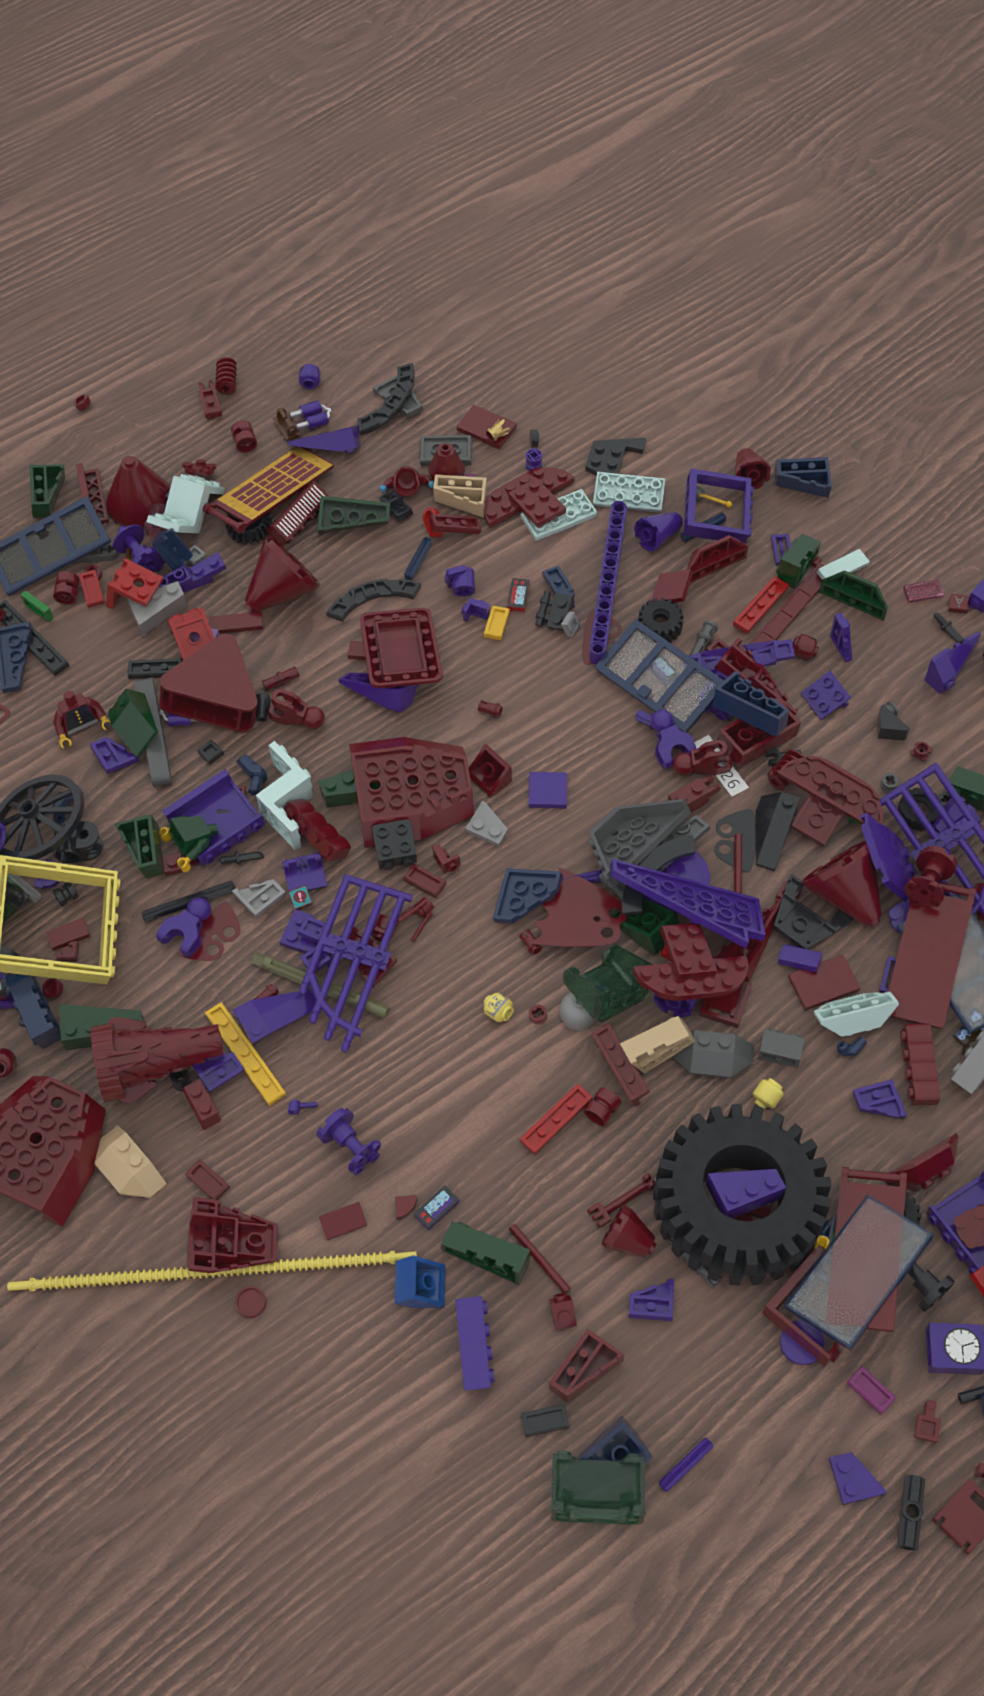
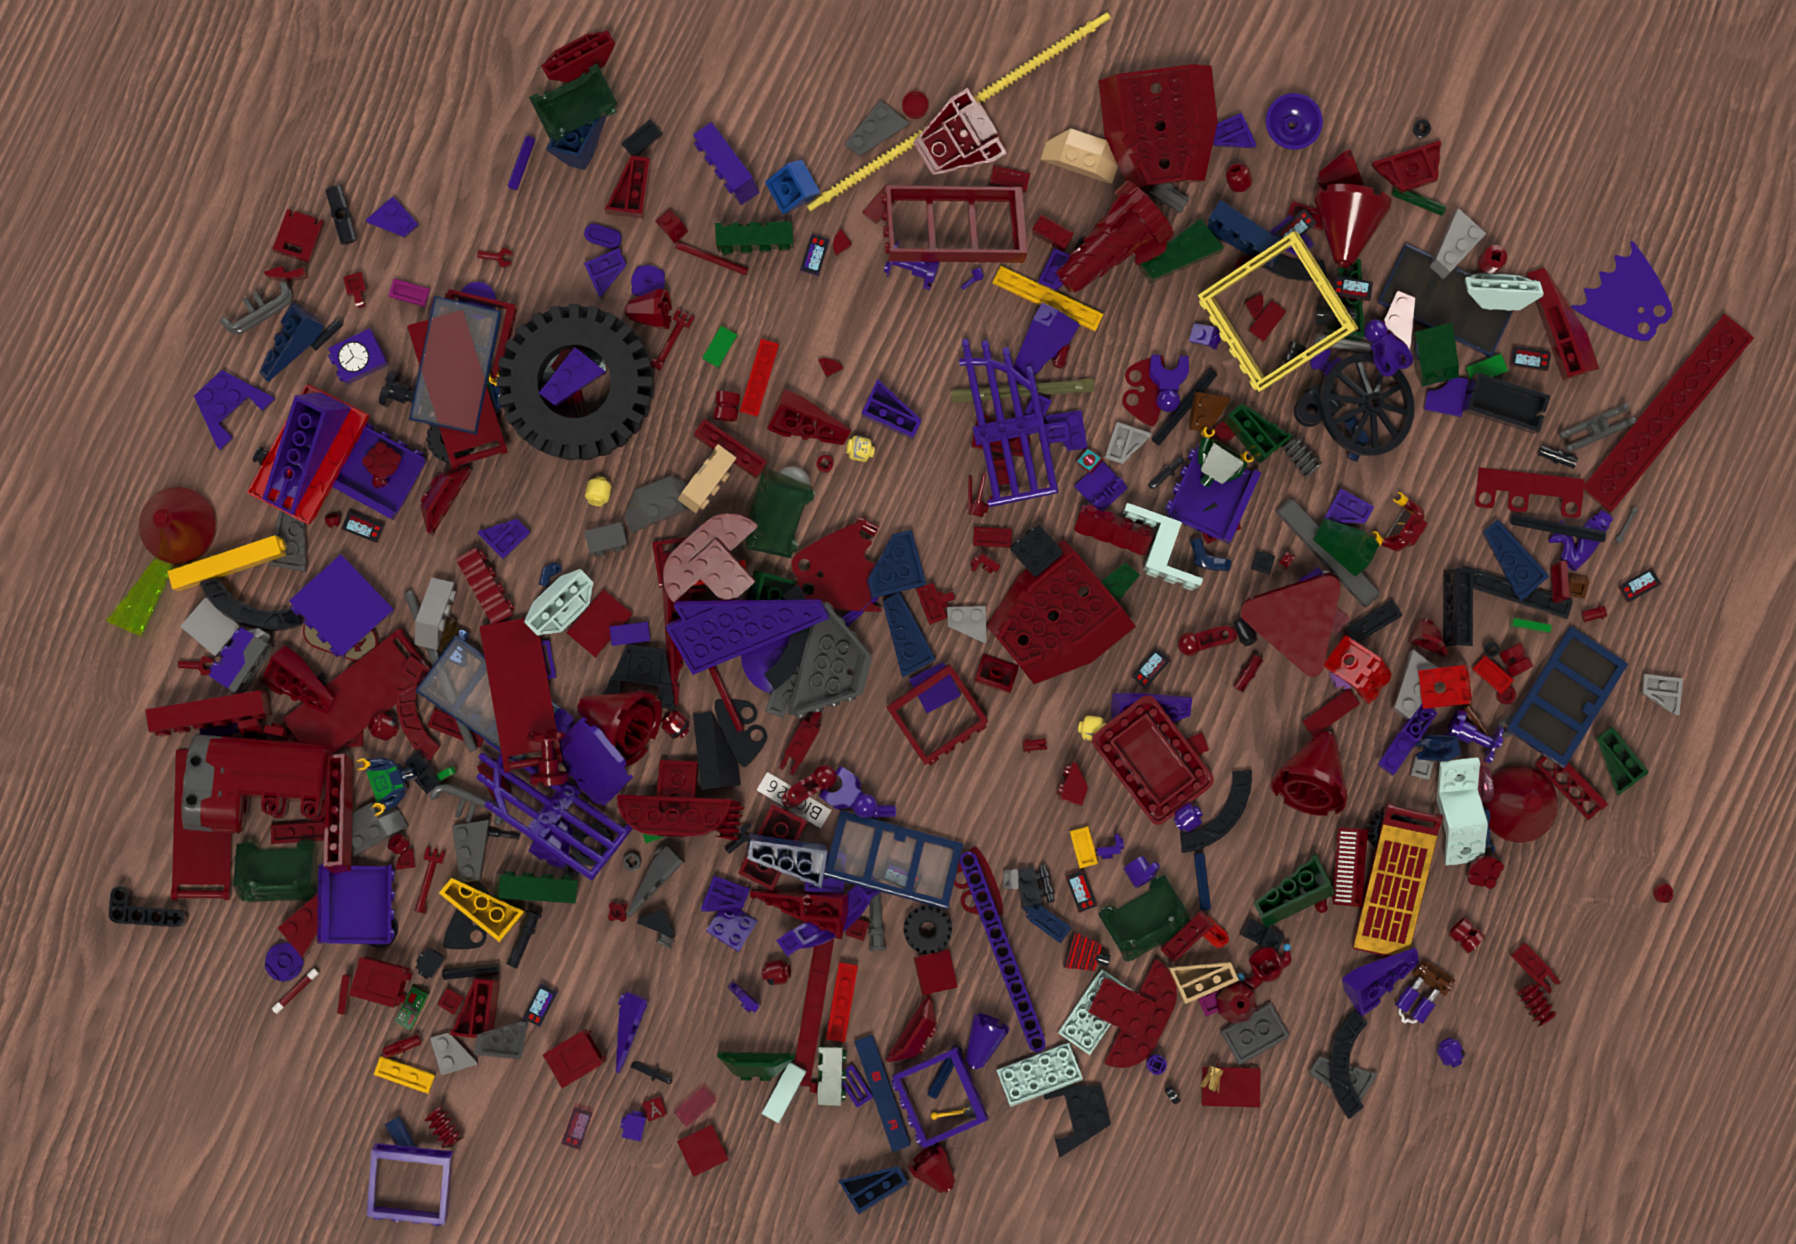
camera: 145 degrees right, 25 degrees up
(71, 1077) = (1167, 194): none -> dark grey piece
(79, 604) = (1490, 645): none -> black hinge
(79, 640) = (1460, 607): none -> black fence
(118, 806) = (1302, 456): none -> dark grey piece
(120, 626) = (1428, 637): none -> dark red wedge
(129, 947) = (1205, 336): none -> dark purple bracket
(172, 887) = (1206, 410): none -> reddish brown wing
(189, 742) = (1286, 560): none -> dark red bush
(227, 1126) = (956, 193): none -> dark red window
(304, 1299) = (876, 128): none -> dark grey wing
(357, 719) = (1150, 668): none -> tile
(399, 600) = (1188, 817): none -> dark purple head
(434, 696) = (1090, 726): none -> light yellow head
(452, 1022) = (890, 412): none -> dark purple wedge
(479, 658) = (1074, 786): none -> dark red slope
(481, 550) = (1145, 920): none -> clear green windscreen
(483, 1097) = (830, 366): none -> dark red tile
(507, 852) = (934, 602): none -> dark red hinge
(536, 1064) = (802, 418): none -> dark red wedge
(544, 551) = (1084, 953): none -> torso
(549, 834) = (907, 638): none -> dark blue wing
(559, 787) = (920, 688): none -> dark red window
(565, 1545) = (576, 57): none -> dark red wedge
(578, 1169) = (719, 347): none -> green tile
(616, 1269) = (647, 279): none -> dark purple piece
(638, 1340) = (603, 236): none -> dark purple tile
(759, 1377) = (497, 257): none -> dark red bar
(762, 535) = (882, 1093): none -> dark blue tile
(796, 864) = (675, 724): none -> dark red head
(820, 718) = (724, 896): none -> dark purple wing
(867, 757) = (660, 870): none -> dark grey wedge
(932, 558) = (702, 1150): none -> dark red tile

